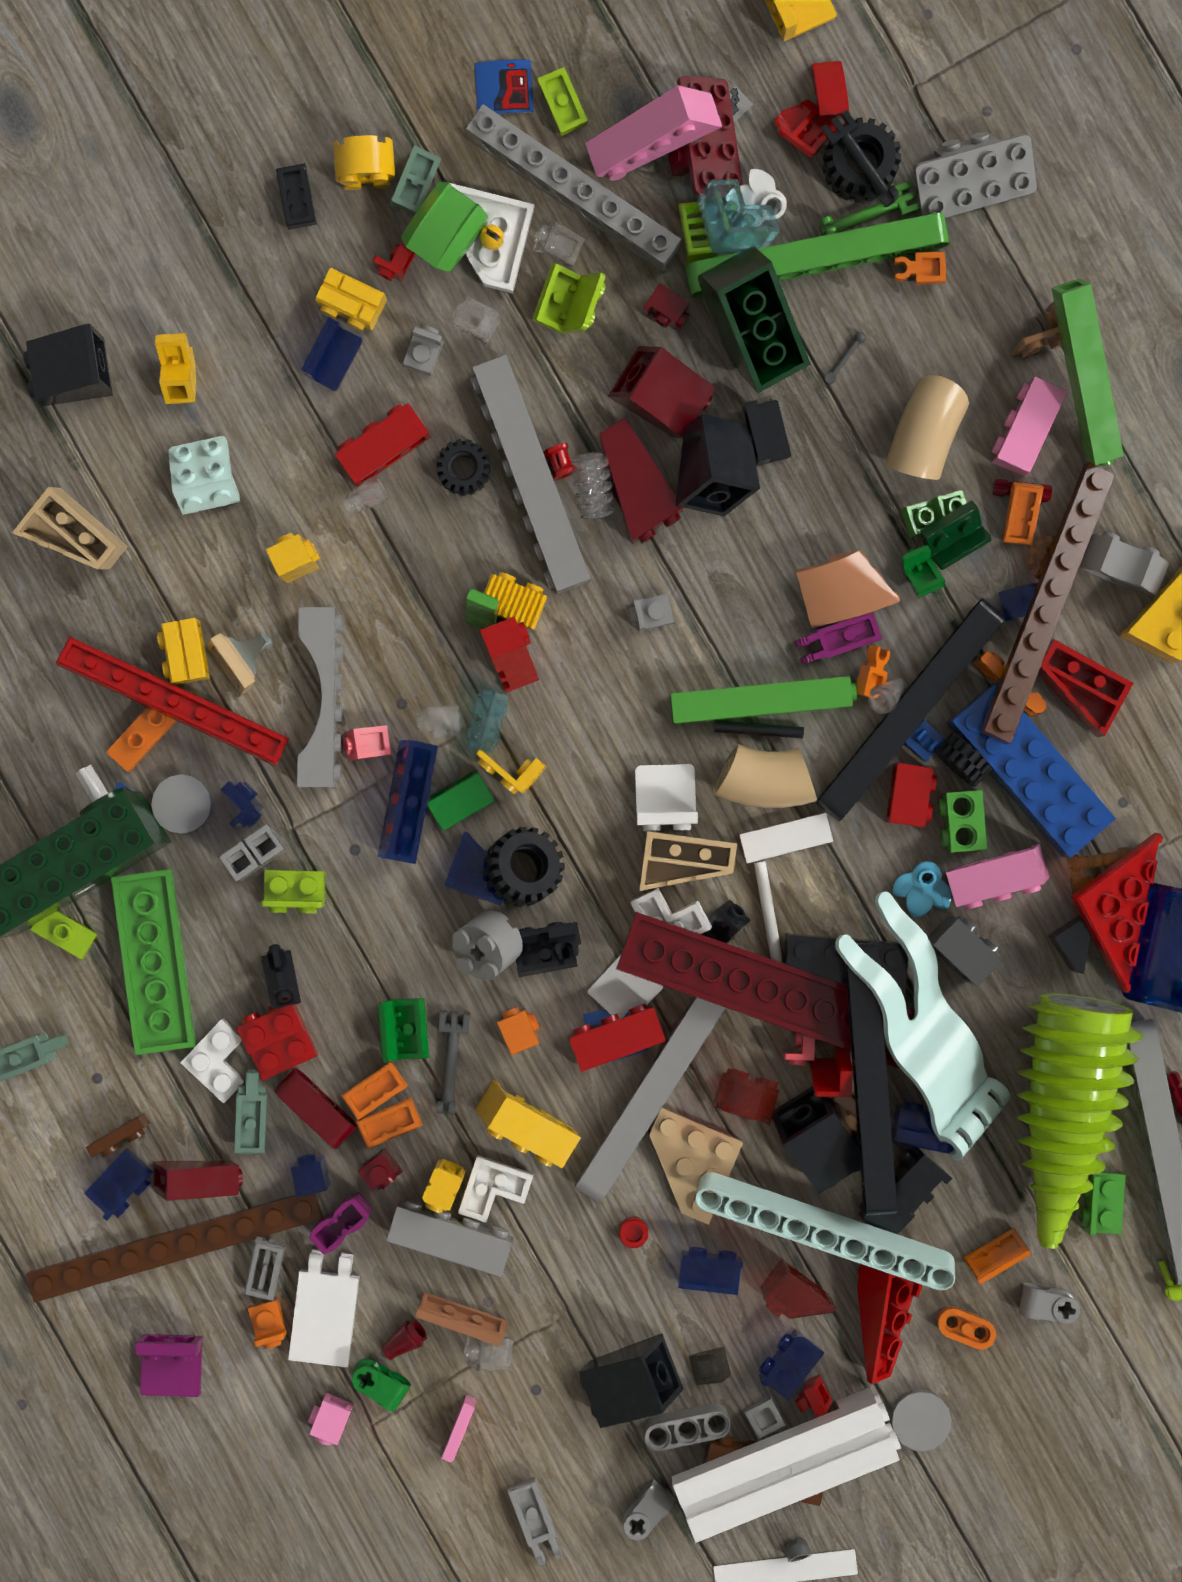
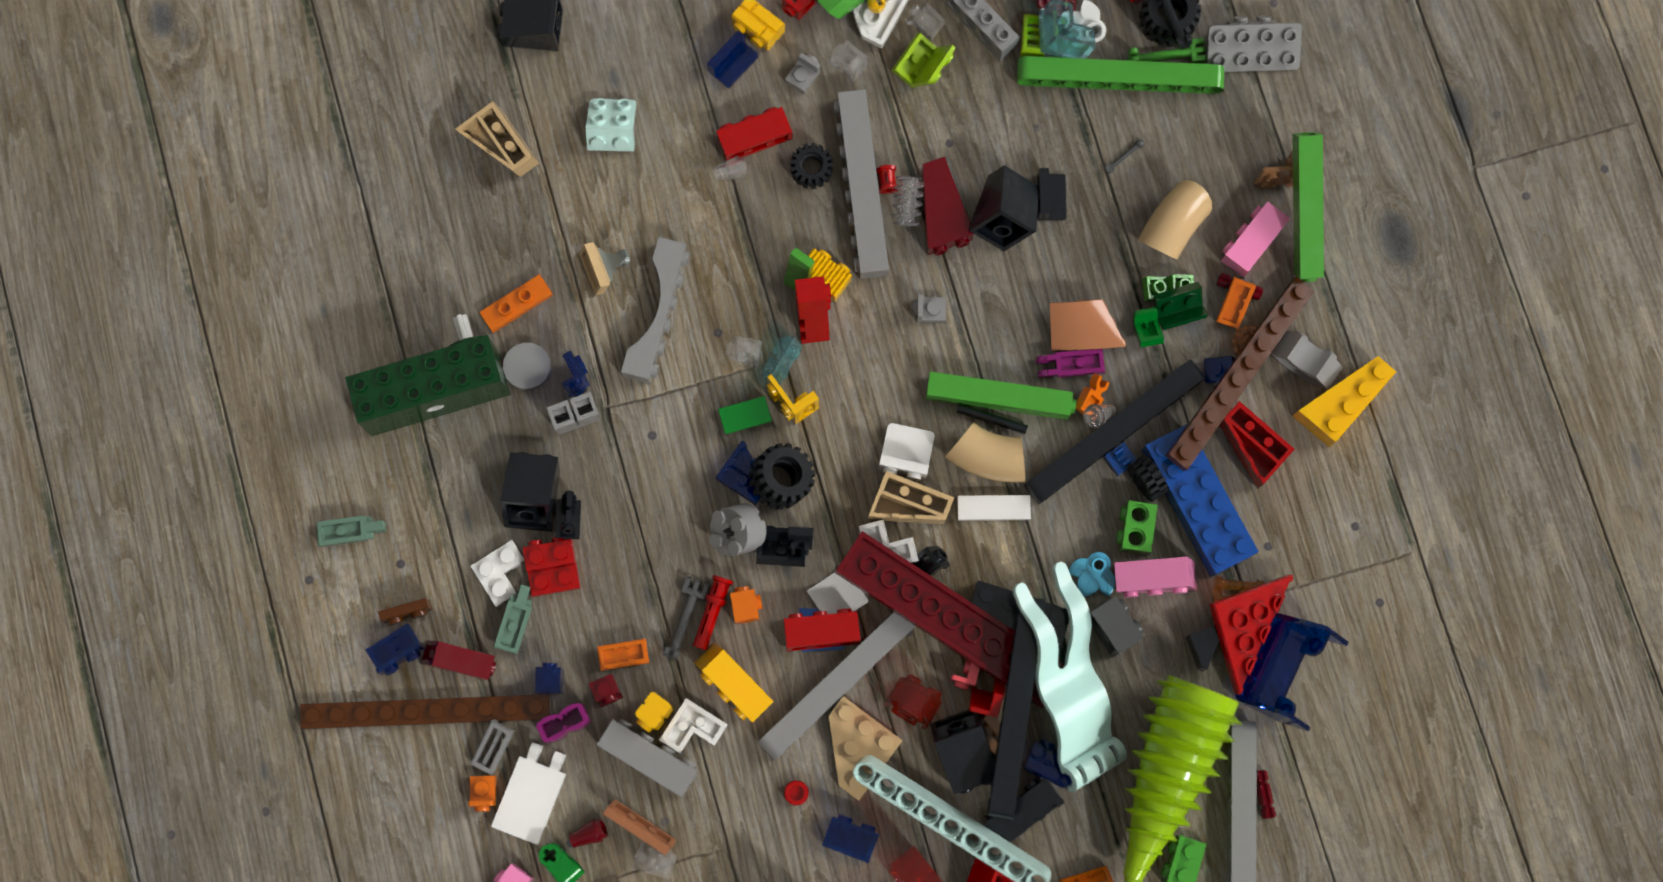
camera: 10 degrees right, 10 degrees down
(66, 933) = (408, 444): lime plate -> none
(153, 962) = (471, 482): bright green plate -> none
(170, 1364) = (395, 807): magenta bracket -> none
(172, 701) = (542, 286): red tile -> none
(177, 368) = (613, 40): yellow brick -> none
(183, 651) = (560, 250): yellow brick -> none
(227, 956) = (530, 491): none -> black slope
(293, 557) = (664, 199): yellow brick -> none
(294, 889) = (596, 453): lime bracket -> none
(315, 1108) = (567, 628): dark red beam -> none
(366, 743) = (683, 354): coral bracket -> none
(374, 1090) = (618, 625): orange plate -> none
(403, 1029) = (653, 582): green bracket -> none
(407, 801) = (703, 404): clear blue brick -> none
(482, 1032) = (715, 601): none -> red pin
(662, 390) = (978, 144): dark red slope -> none
(667, 308) = (996, 86): dark red brick -> none
(754, 318) = (1060, 105): dark green brick -> none
(768, 911) = (966, 559): white bar -> none
(910, 795) = (1099, 497): red brick -> none
(926, 268) = (1201, 104): orange plate -> none
(993, 666) = (1185, 412): orange hinge -> none

